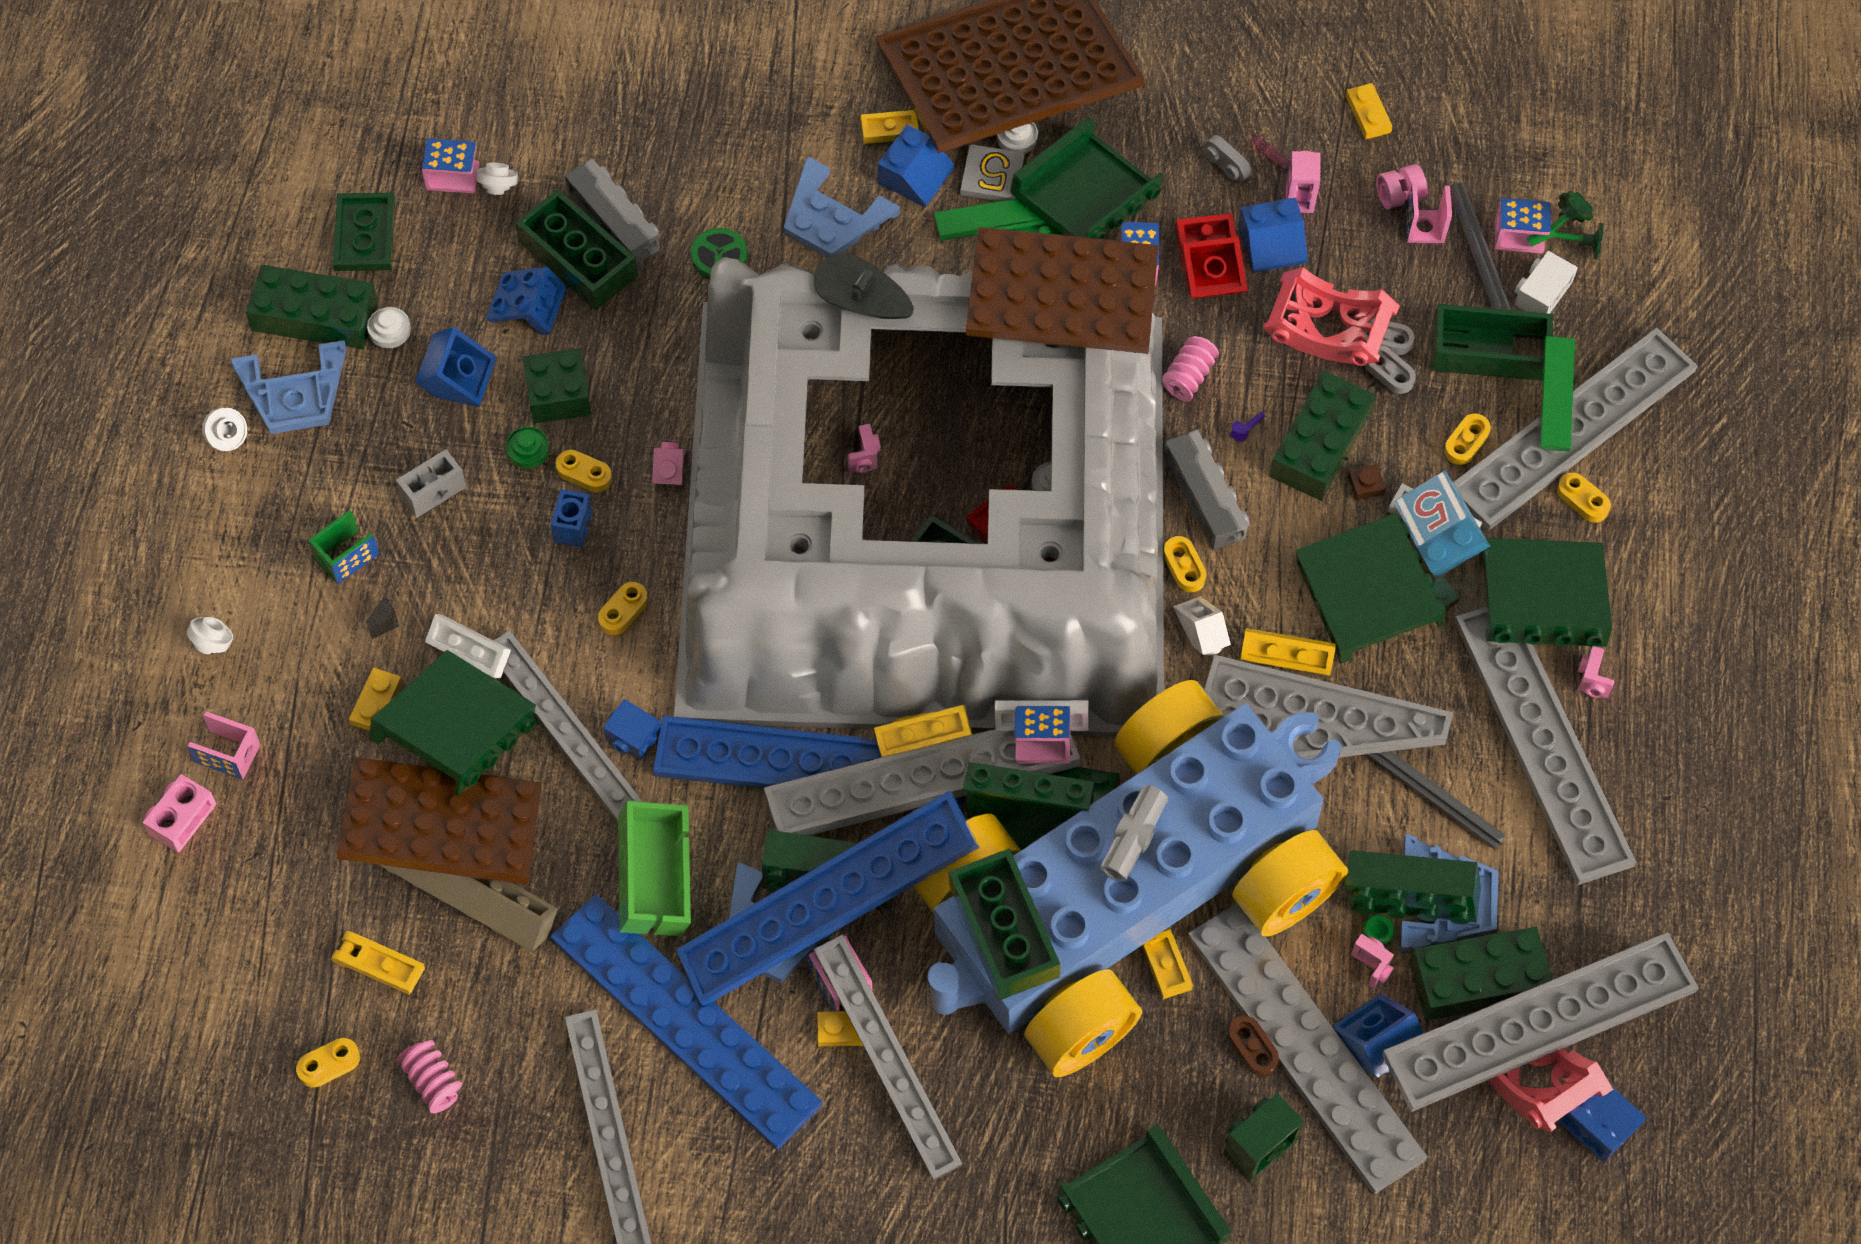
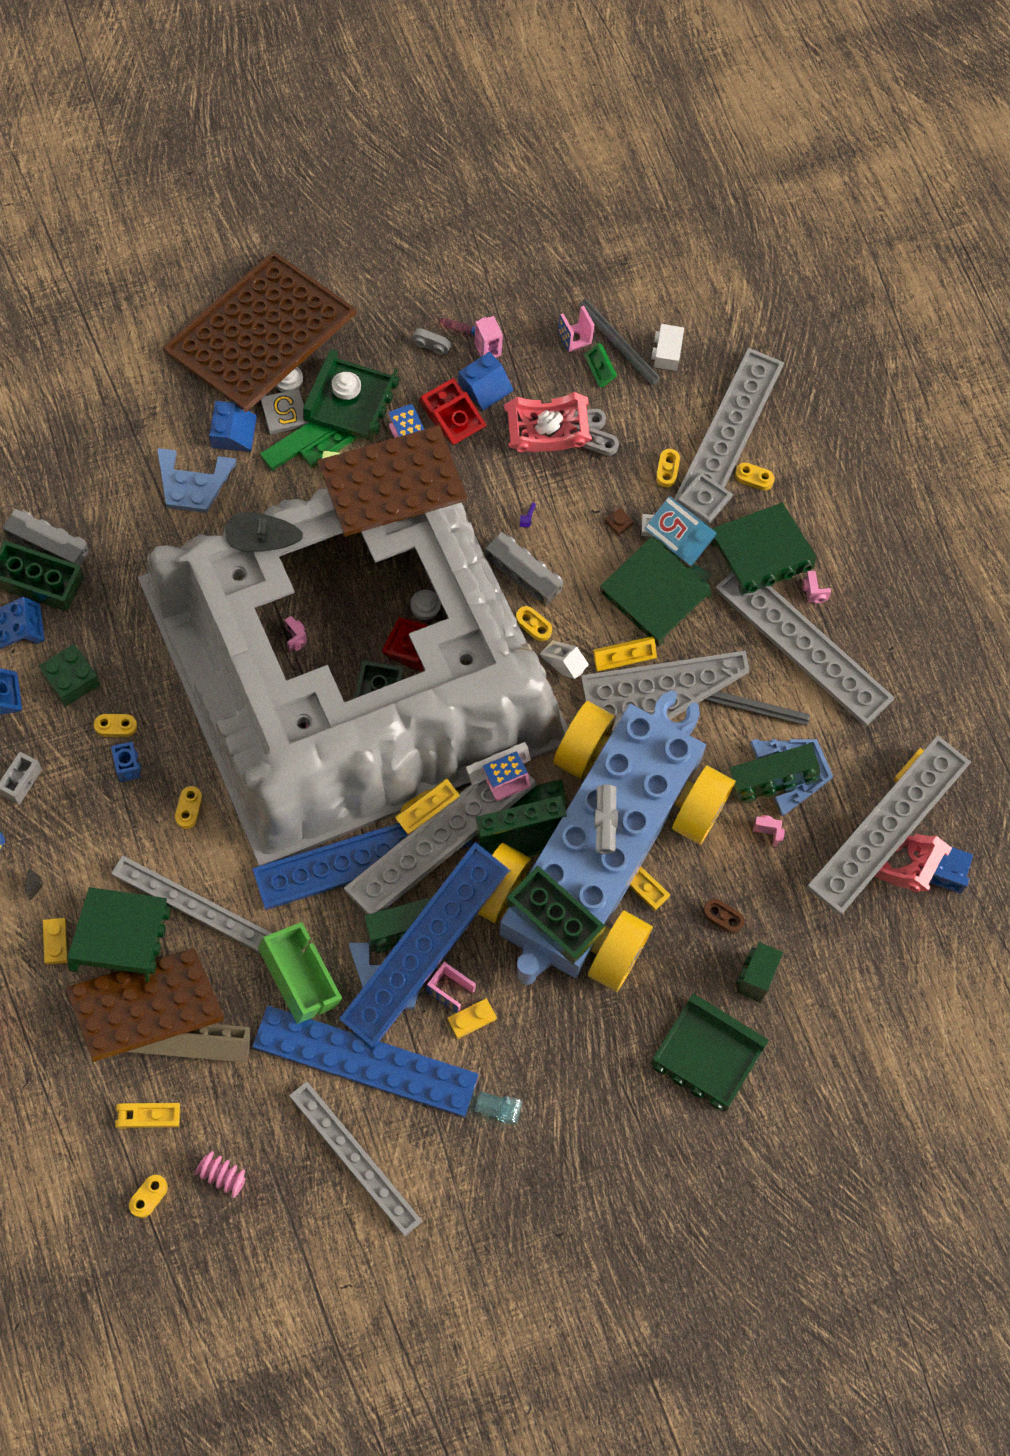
camera: 30 degrees left, 5 degrees up
(468, 645) = (100, 877): white plate -> none
(527, 447) = (70, 725): green plate -> none
(631, 730) = (237, 886): blue head -> none
(668, 464) = (170, 697): bright pink bracket -> none
(715, 245) = (131, 539): green tile -> none
(833, 1161) = (505, 1109): none -> clear light blue piece
(886, 126) = (200, 406): yellow plate -> none
(888, 1057) = (508, 1027): light grey plate -> none
(1086, 170) = (346, 385): none -> white plate
(1189, 368) = (476, 489): bright pink piece -> none
(1308, 1049) = (756, 901): light grey plate -> none
(1322, 435) = (579, 503): dark green brick -> none
(1329, 315) = (548, 422): none -> white plate
(1368, 111) = (504, 273): yellow plate -> none
(1375, 1028) = (793, 873): blue slope -> none
(1379, 928) = (762, 807): green tile -> none
(1395, 187) = (547, 318): bright pink wheel -> none
(1440, 273) = (600, 365): none -> green plate
(1477, 972) = (836, 809): dark green brick -> none
(1488, 341) = (652, 399): dark green piece -> none
(1496, 496) = (704, 498): none -> light grey tile
(1518, 220) = (636, 312): piece -> none
(1557, 393) = (711, 416): green tile -> none
(1573, 208) = (664, 289): dark green plant -> none

